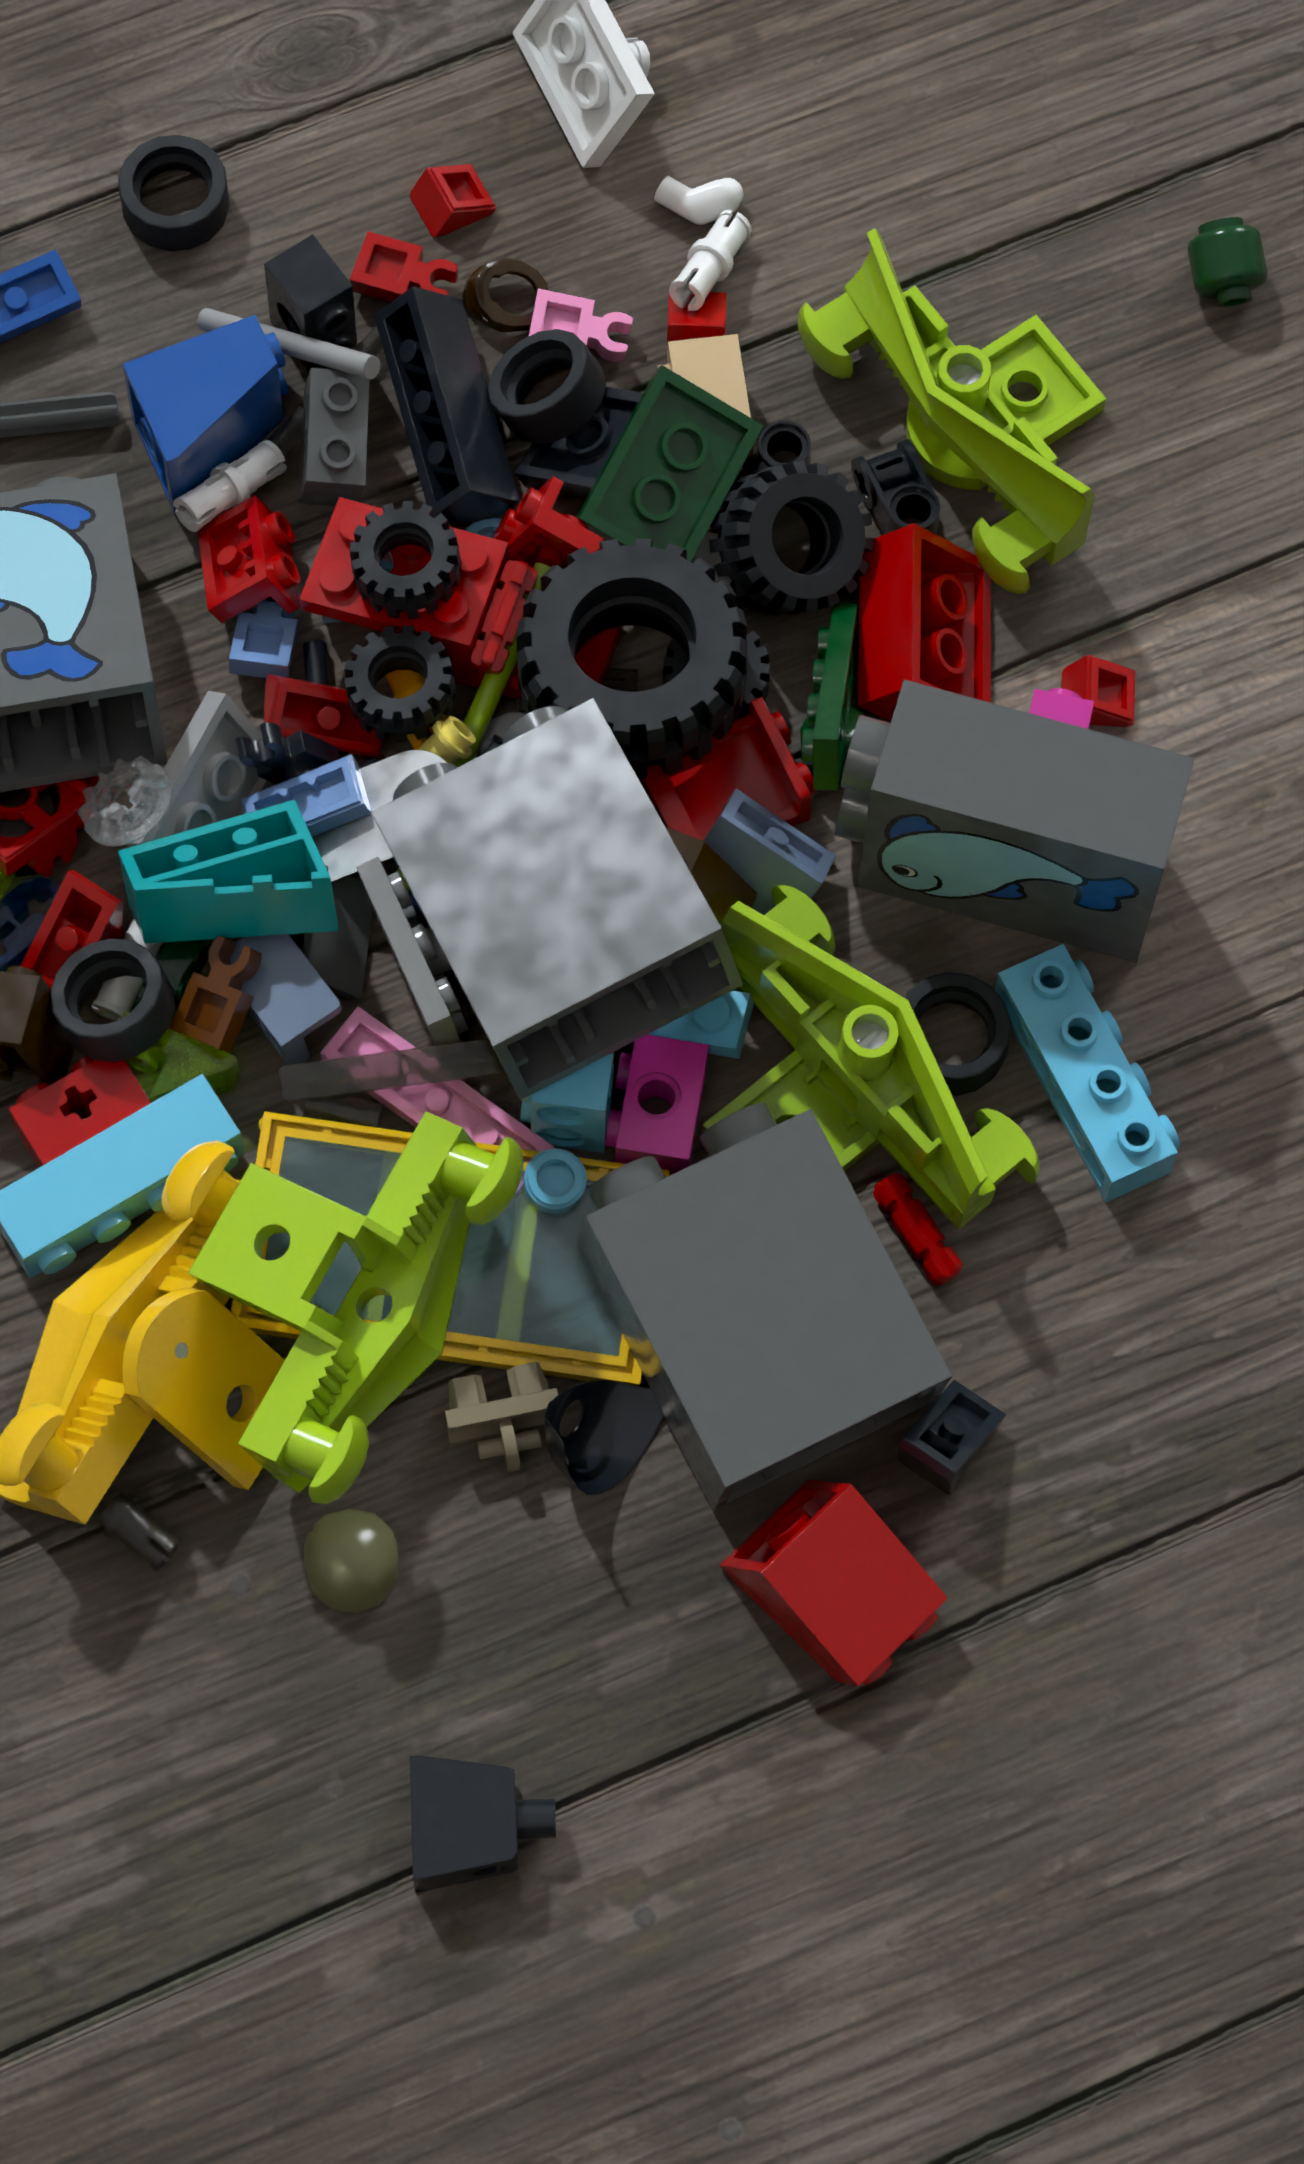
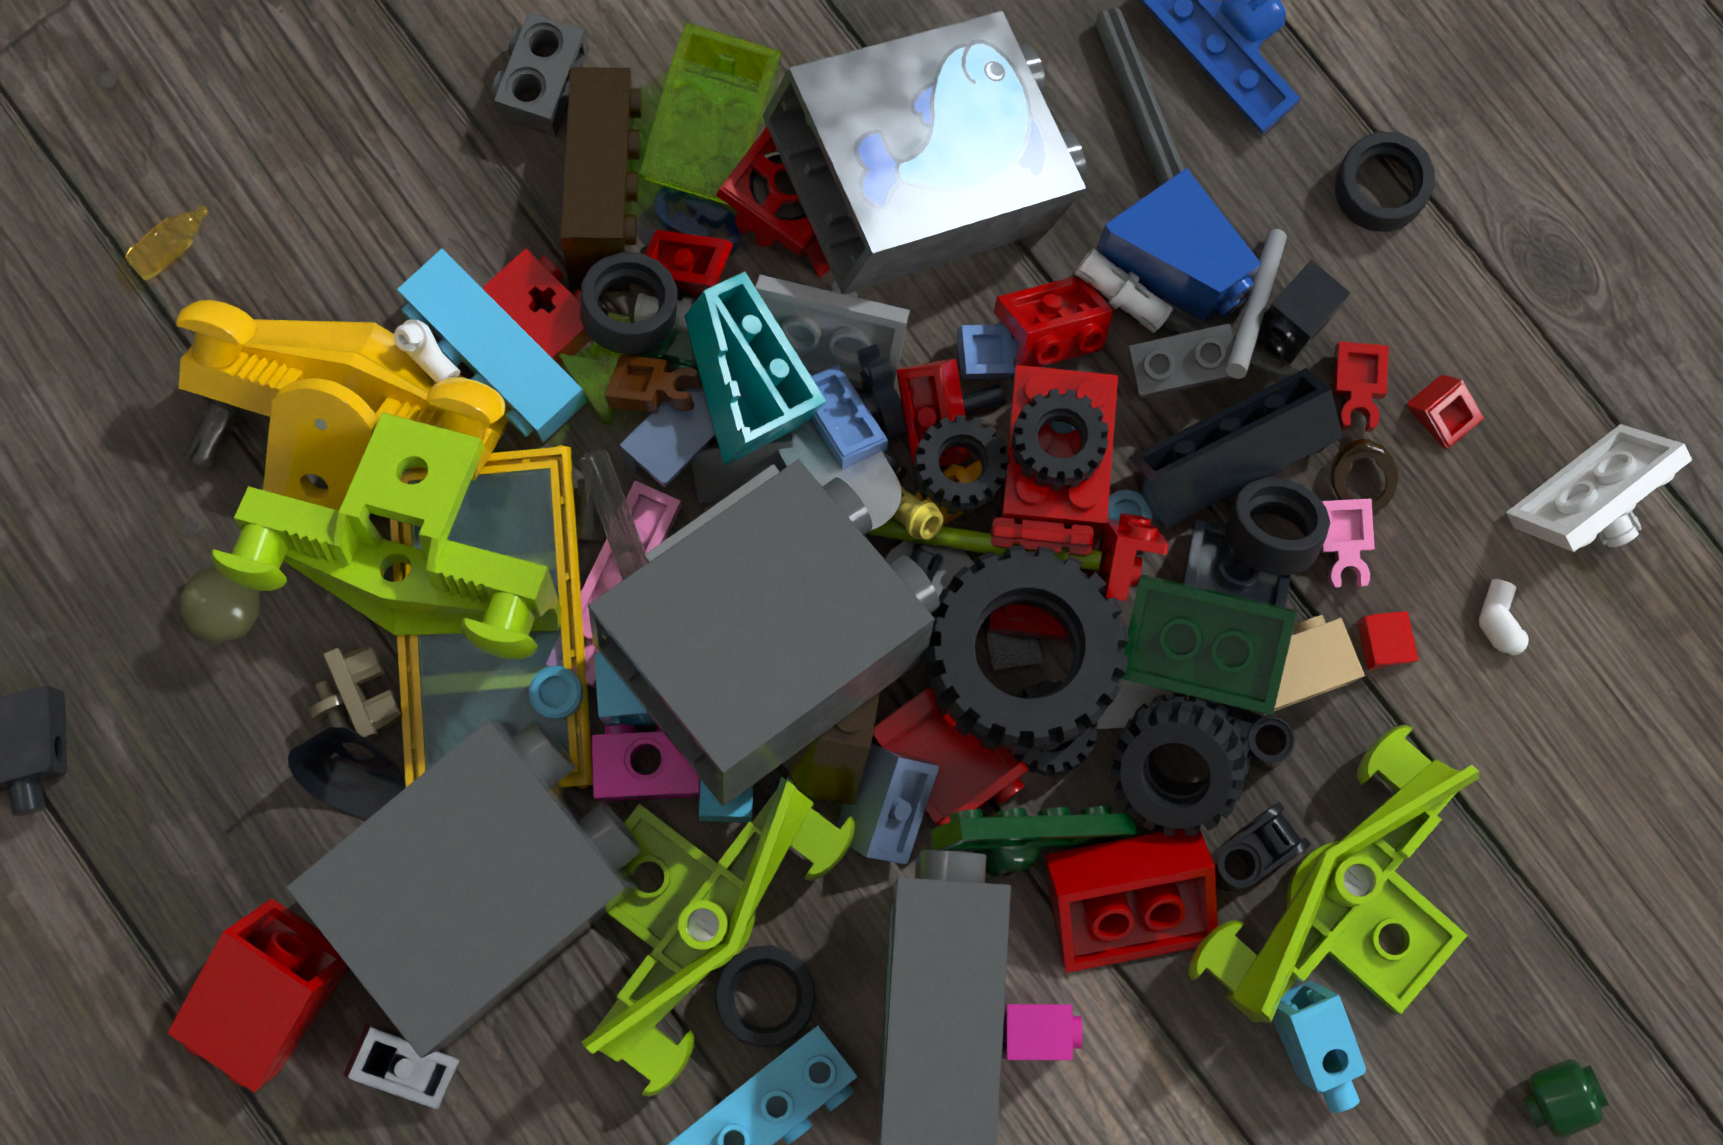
camera: 75 degrees right, 10 degrees up
(103, 1246) = (422, 347): none -> white arm
(116, 824) = (792, 282): clear gear -> none
(710, 260) = (1440, 639): white pin -> none
(917, 1229) = (587, 1002): red axle -> none
(1105, 684) = (1116, 1062): red slope -> none
(1127, 473) = (1320, 1043): none -> medium azure torso

